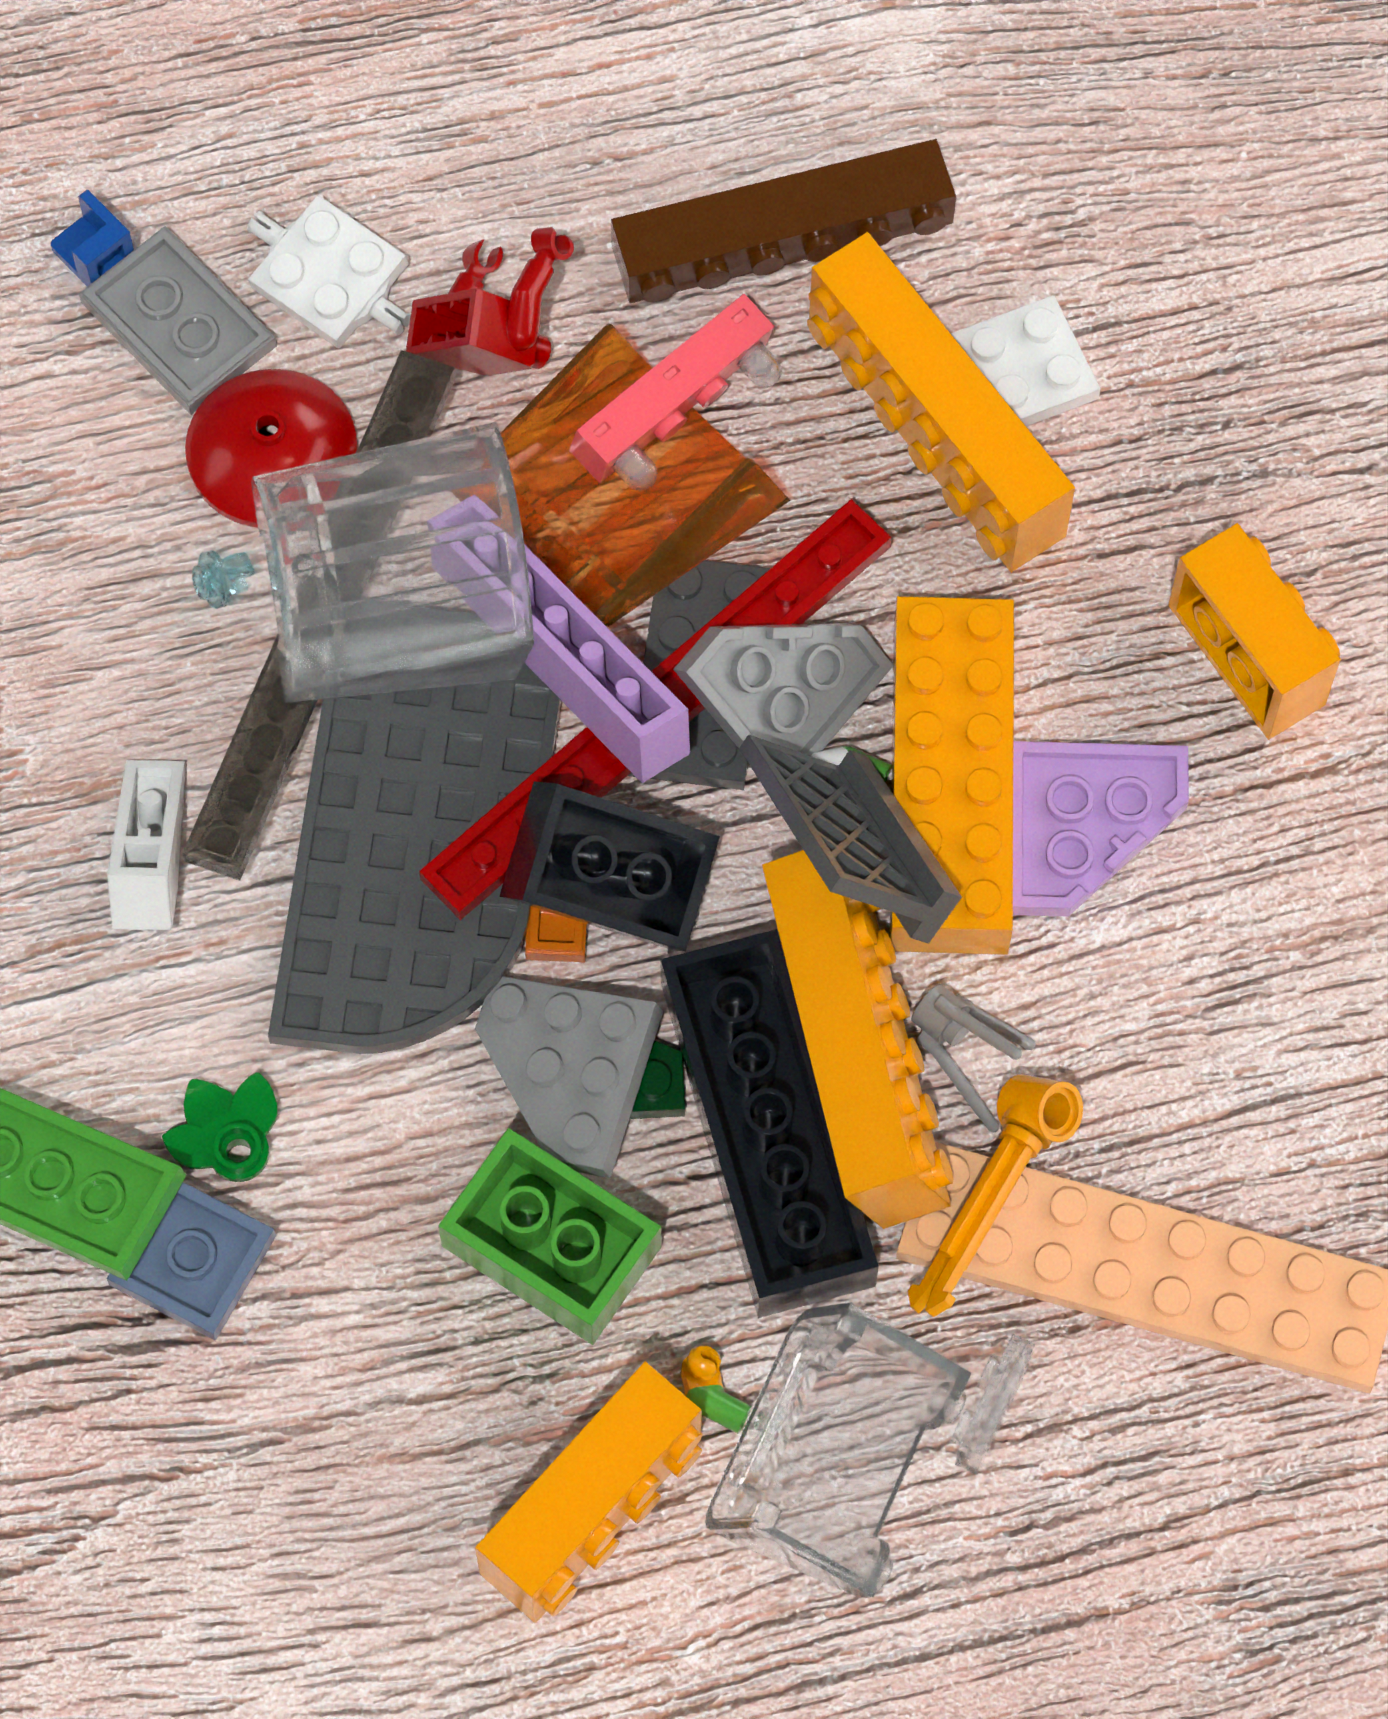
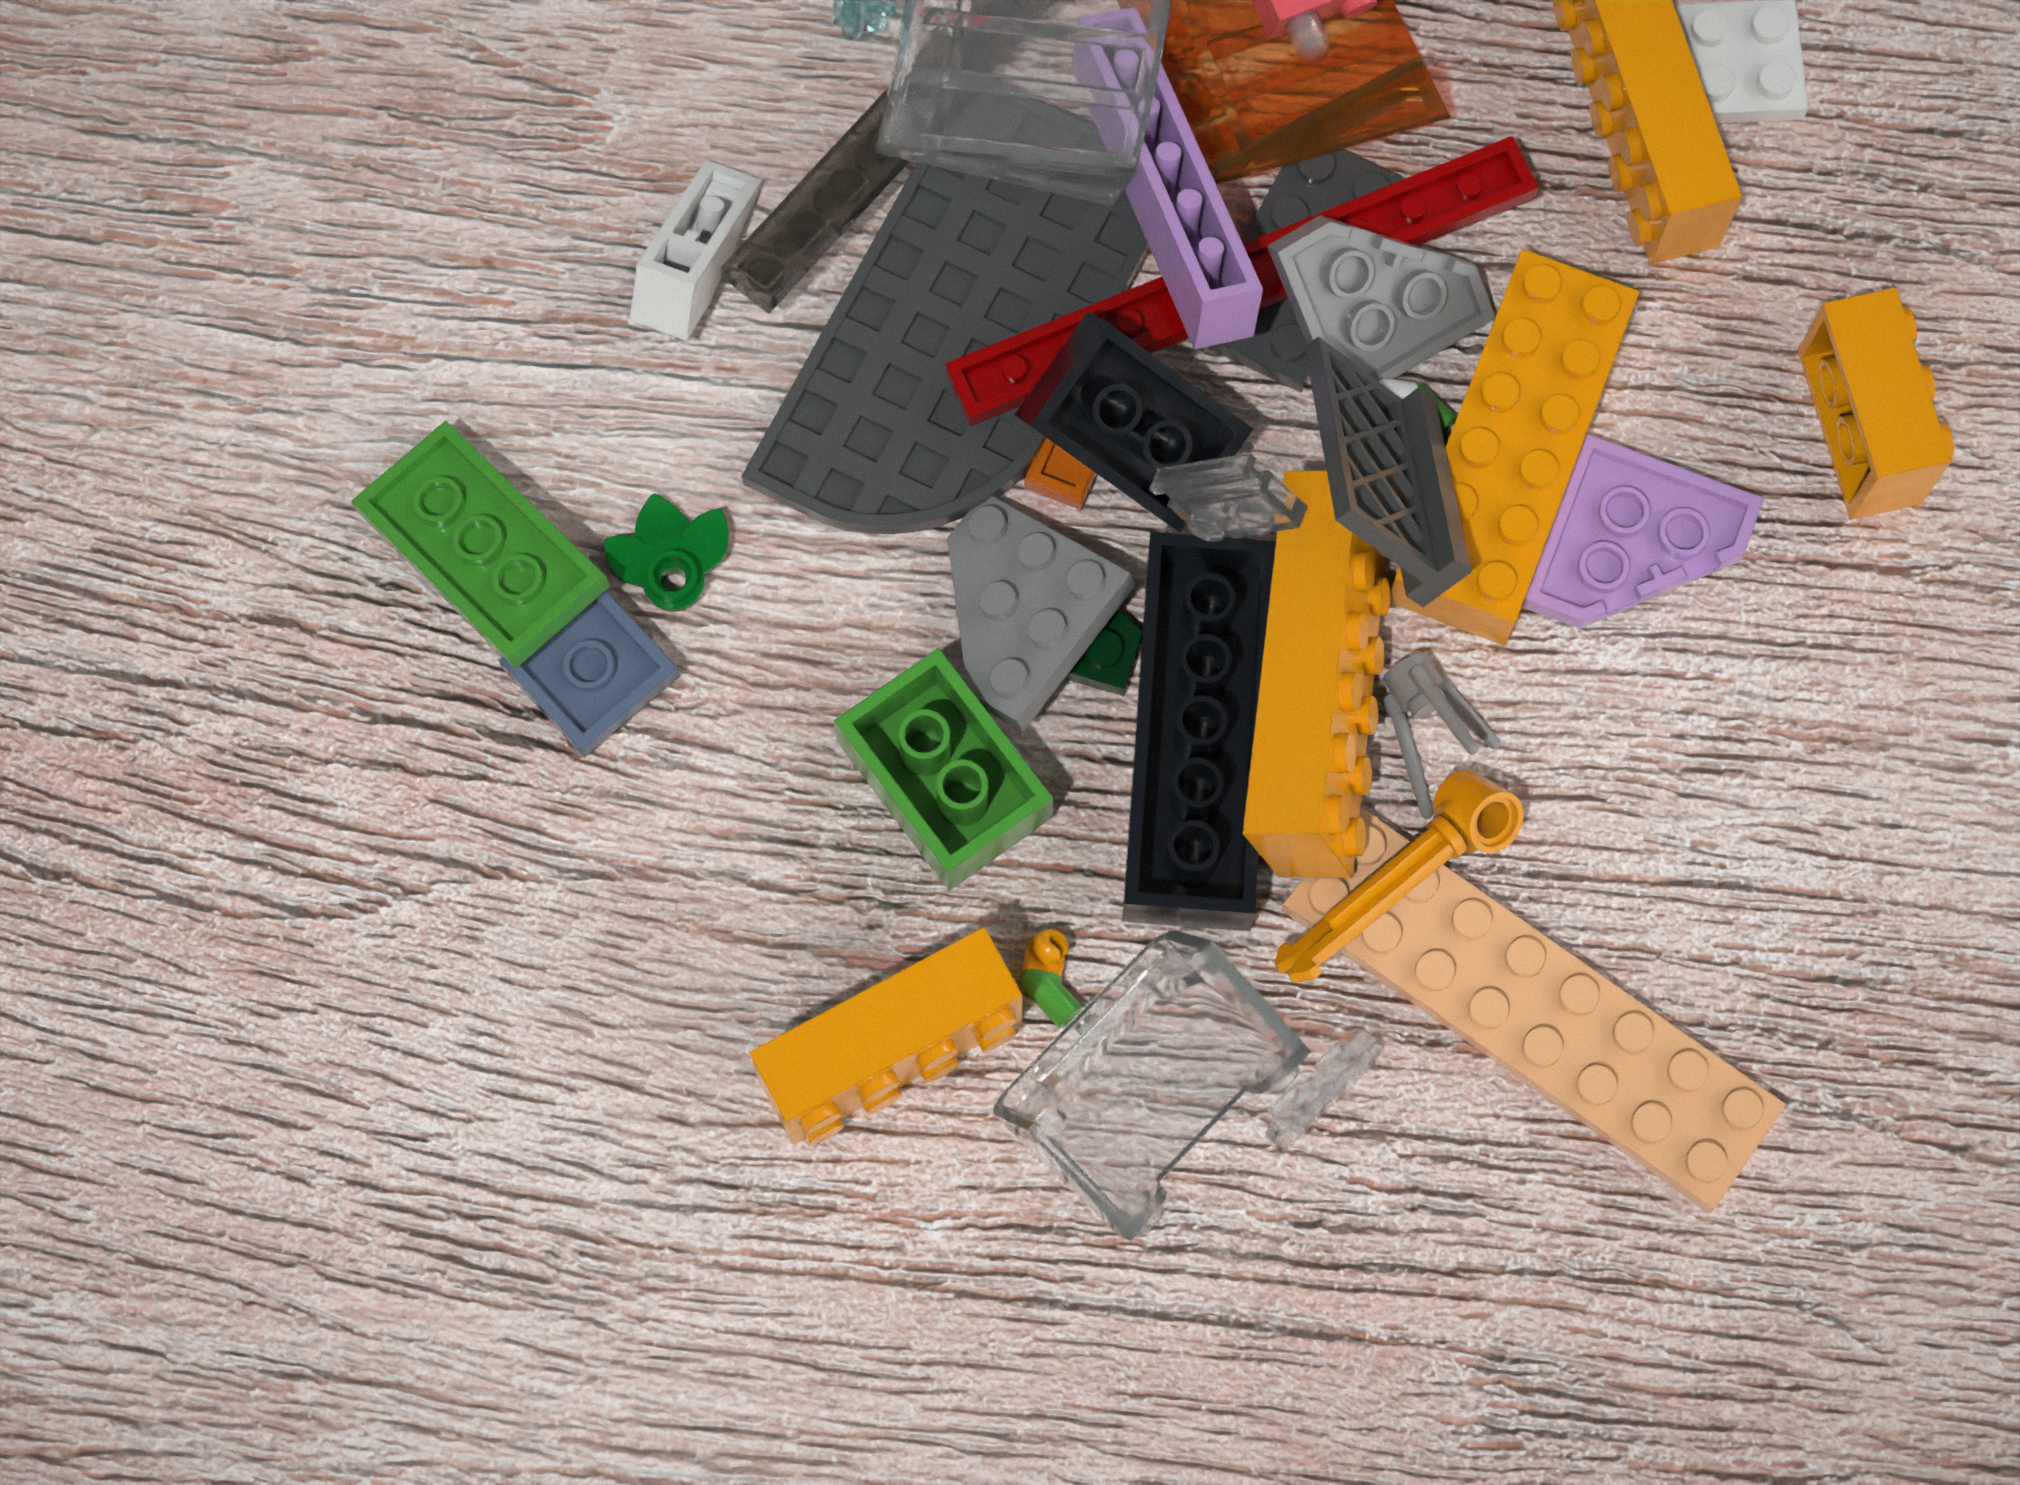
camera: 20 degrees right, 5 degrees up
(722, 905) = (1228, 498): none -> clear plate

